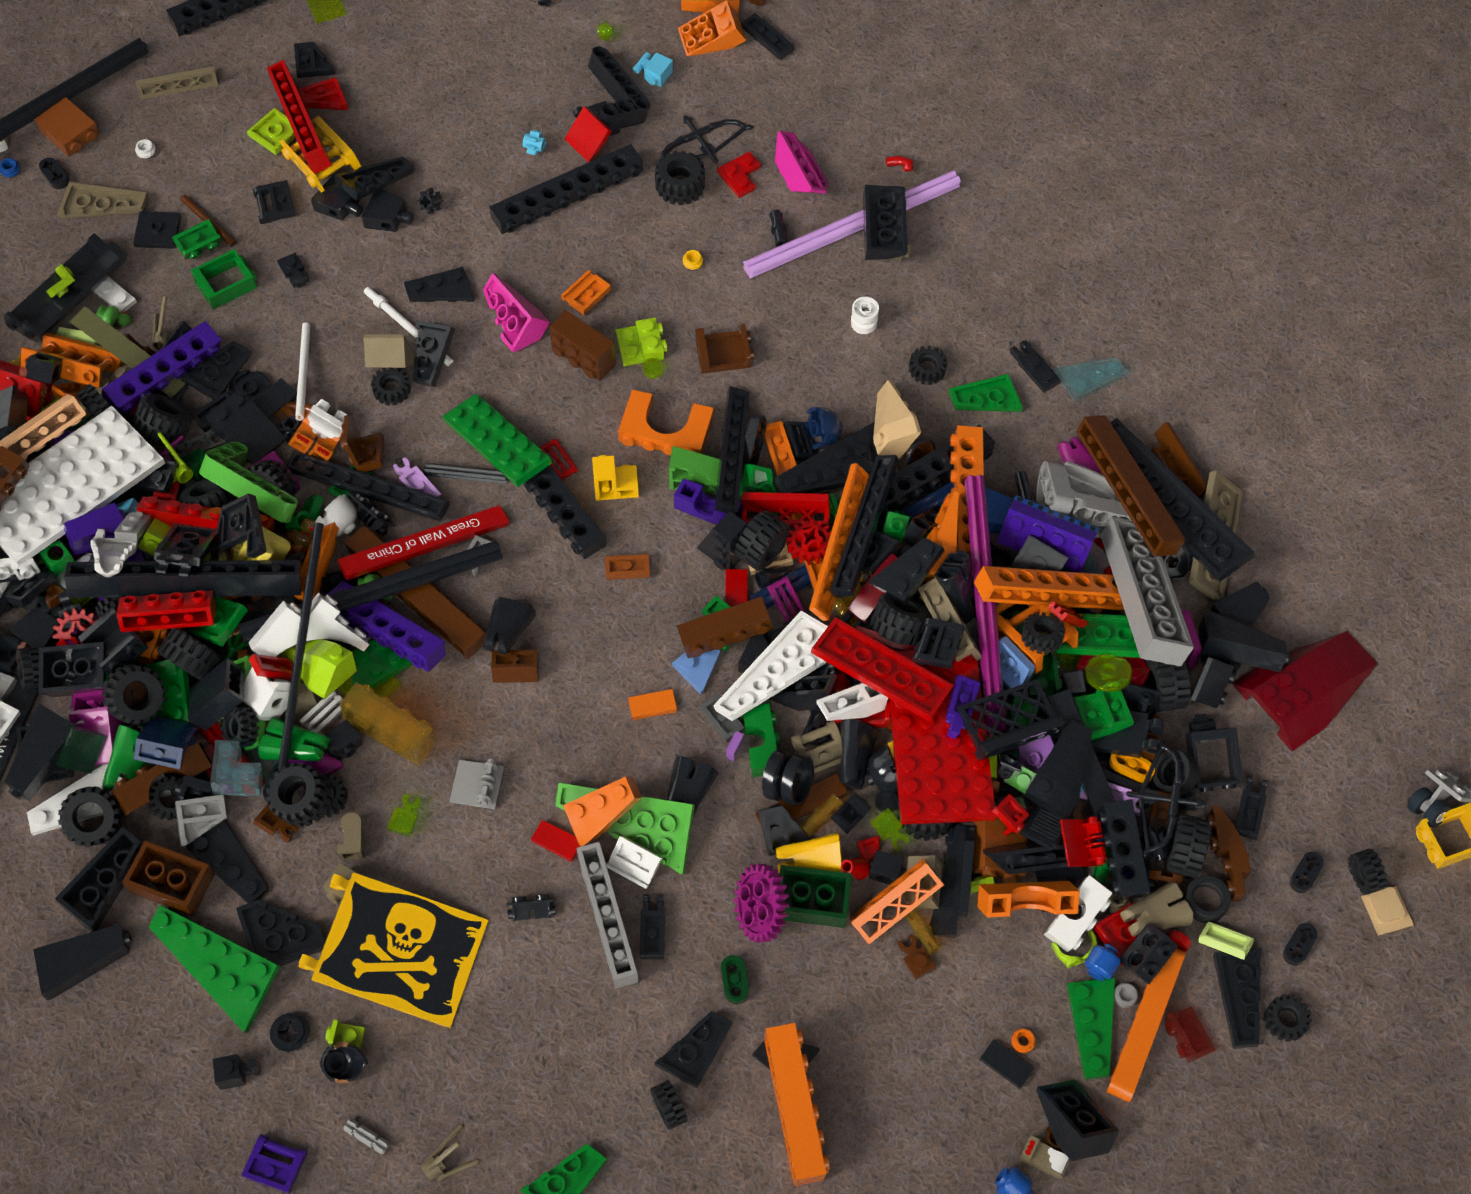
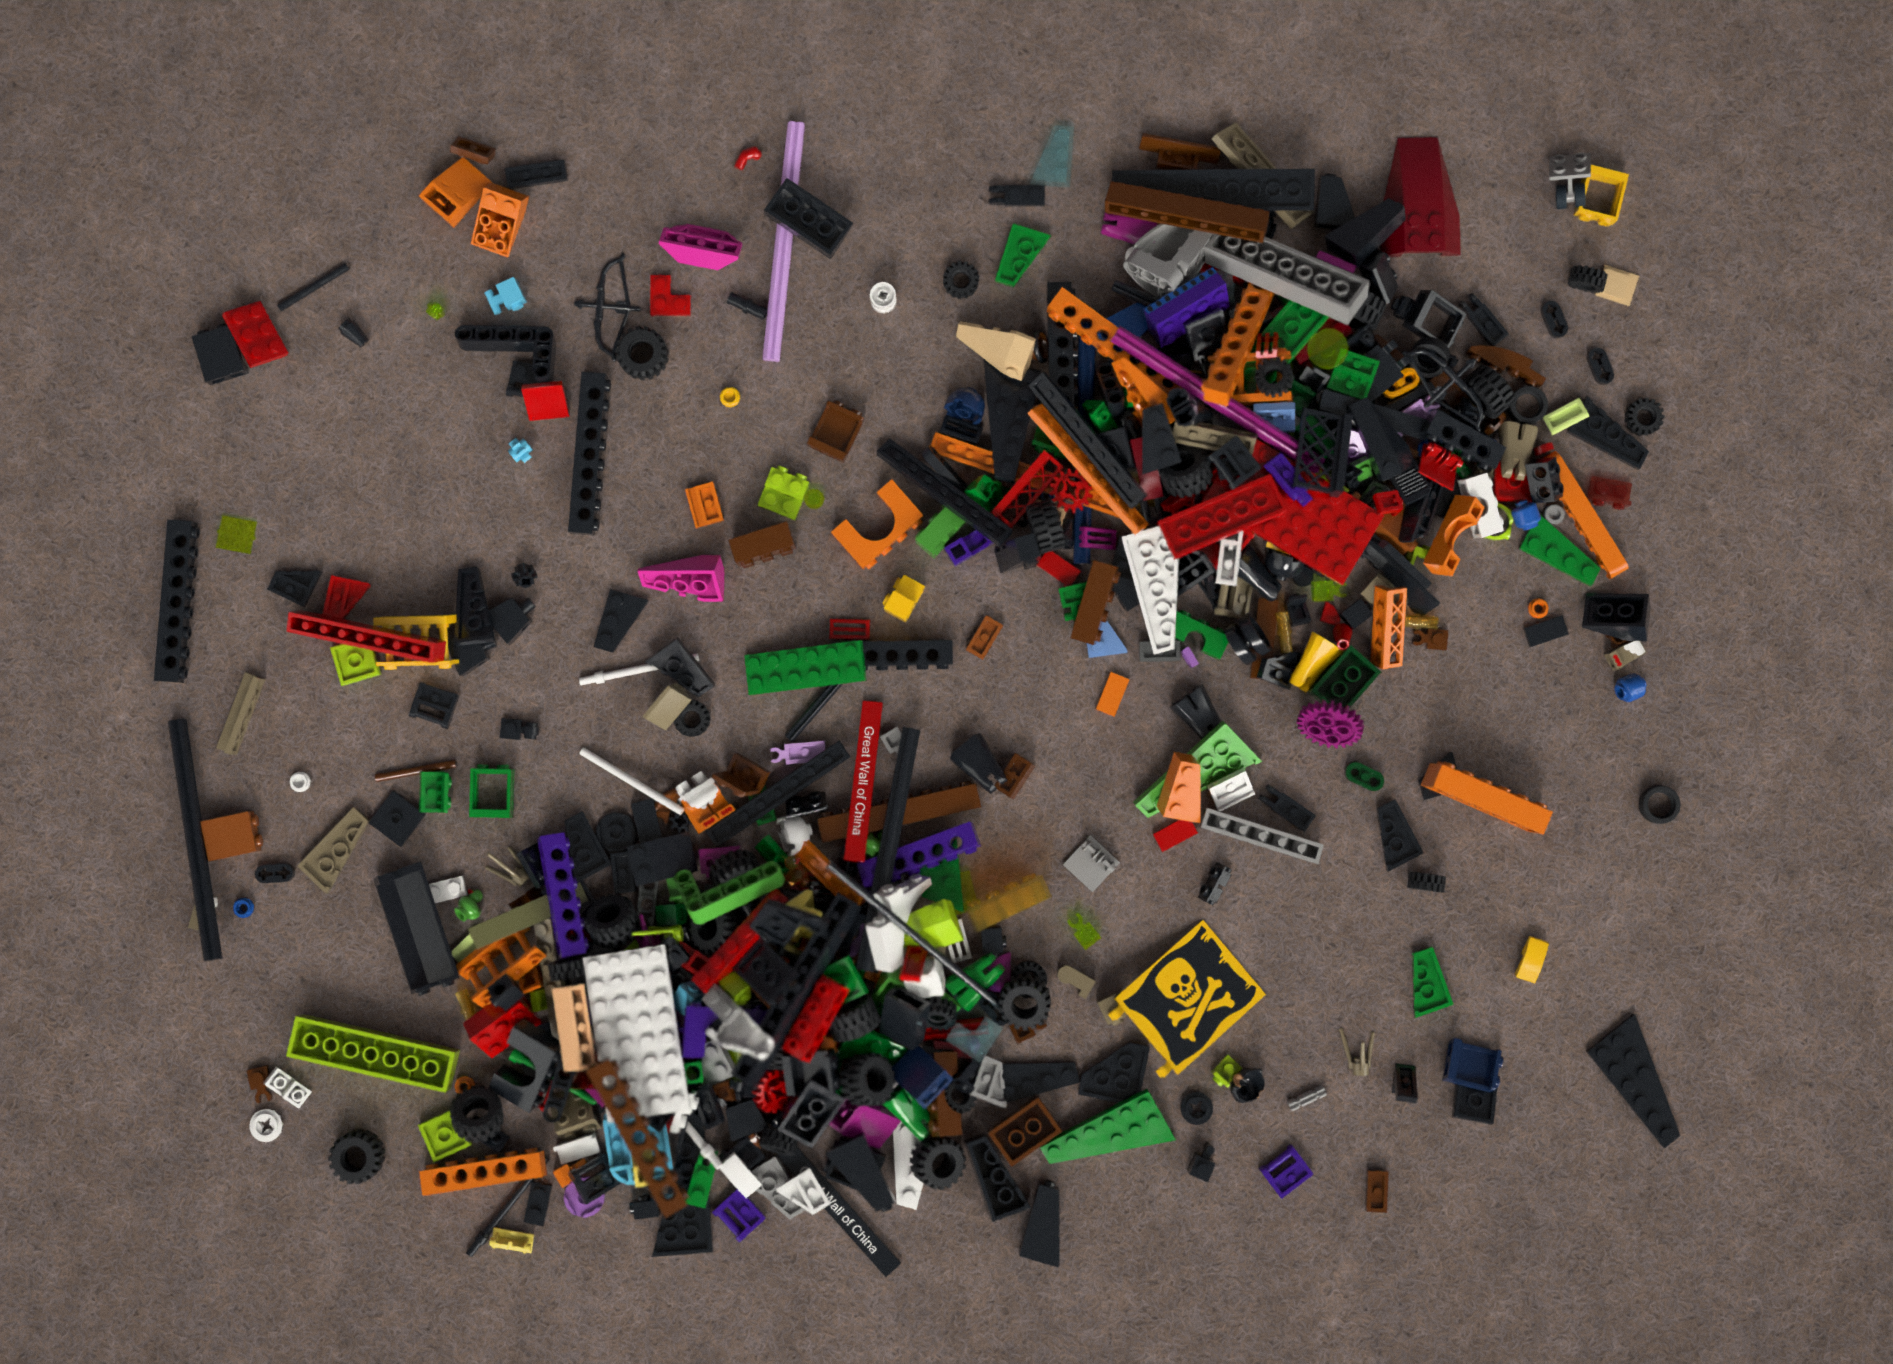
camera: 55 degrees left, 25 degrees up
(61, 287) = (410, 929): lime bracket -> none
(81, 750) = (880, 1140): clear green piece -> none

